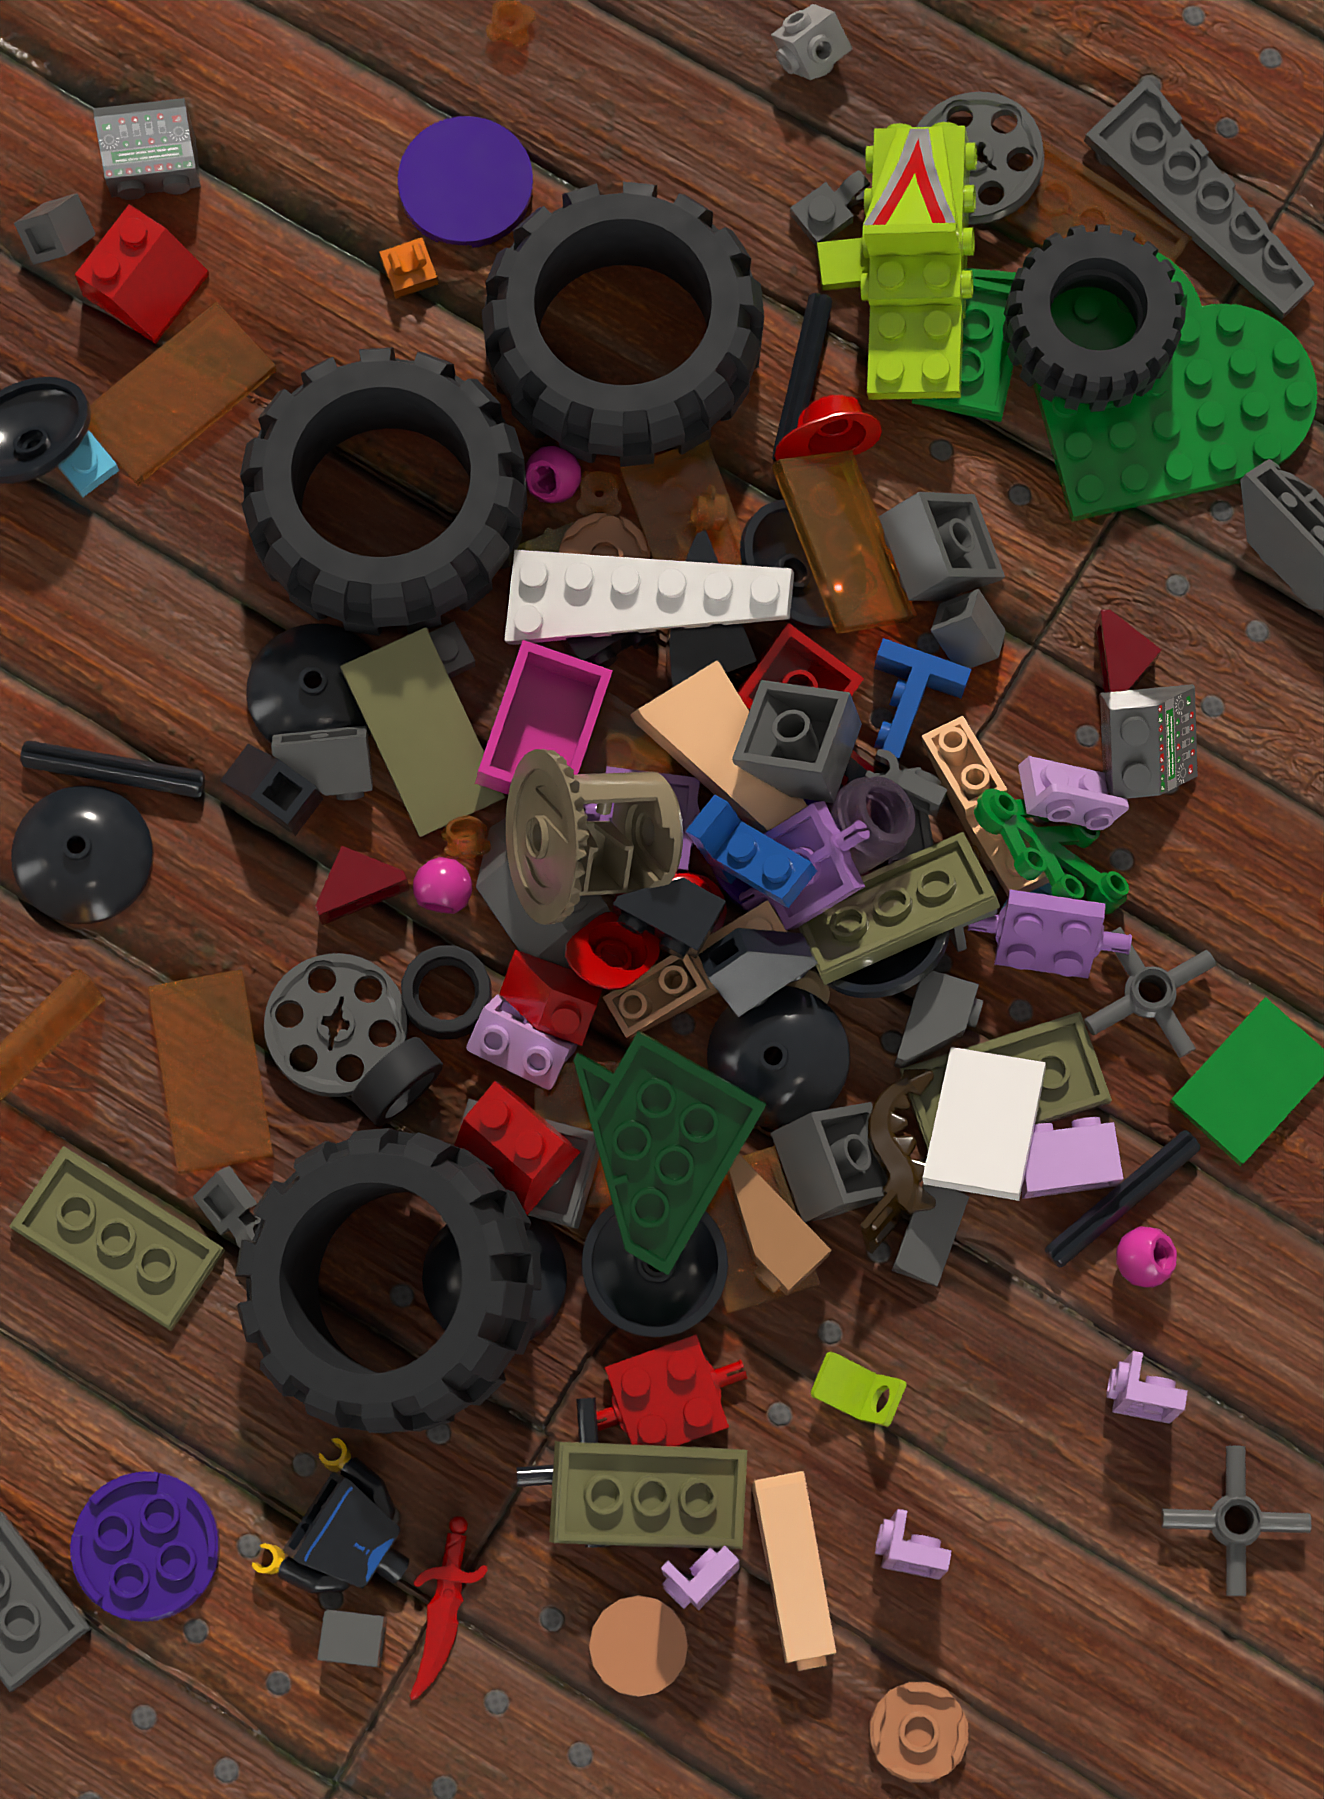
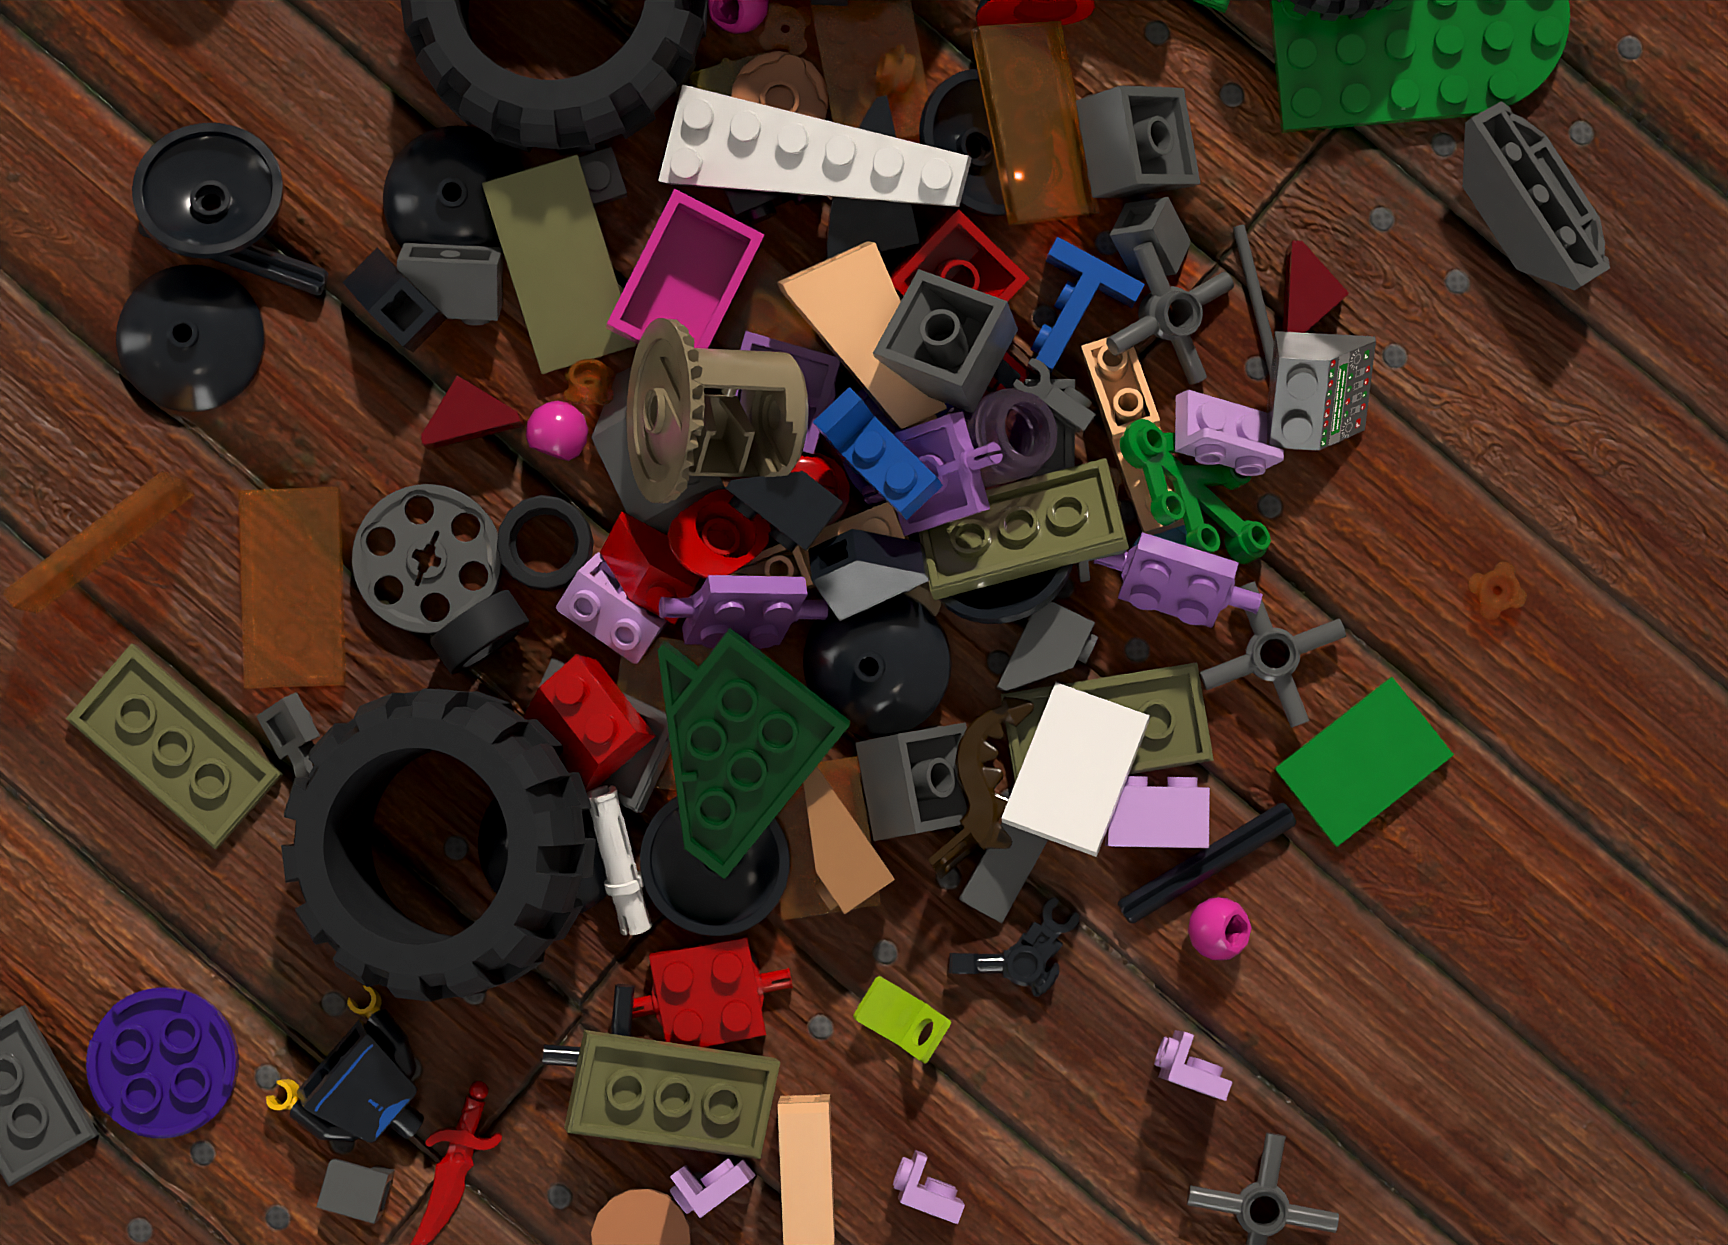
camera: 15 degrees right, 10 degrees up
(77, 695) = (201, 168): none -> black dish
(568, 1295) = (623, 879): none -> white pin
(658, 1009) = (750, 605): none -> medium lavender plate
(966, 1317) = (1026, 960): none -> black piece
(984, 694) = (1154, 313): none -> dark grey bar
(1074, 669) = (1255, 293): none -> dark grey axle

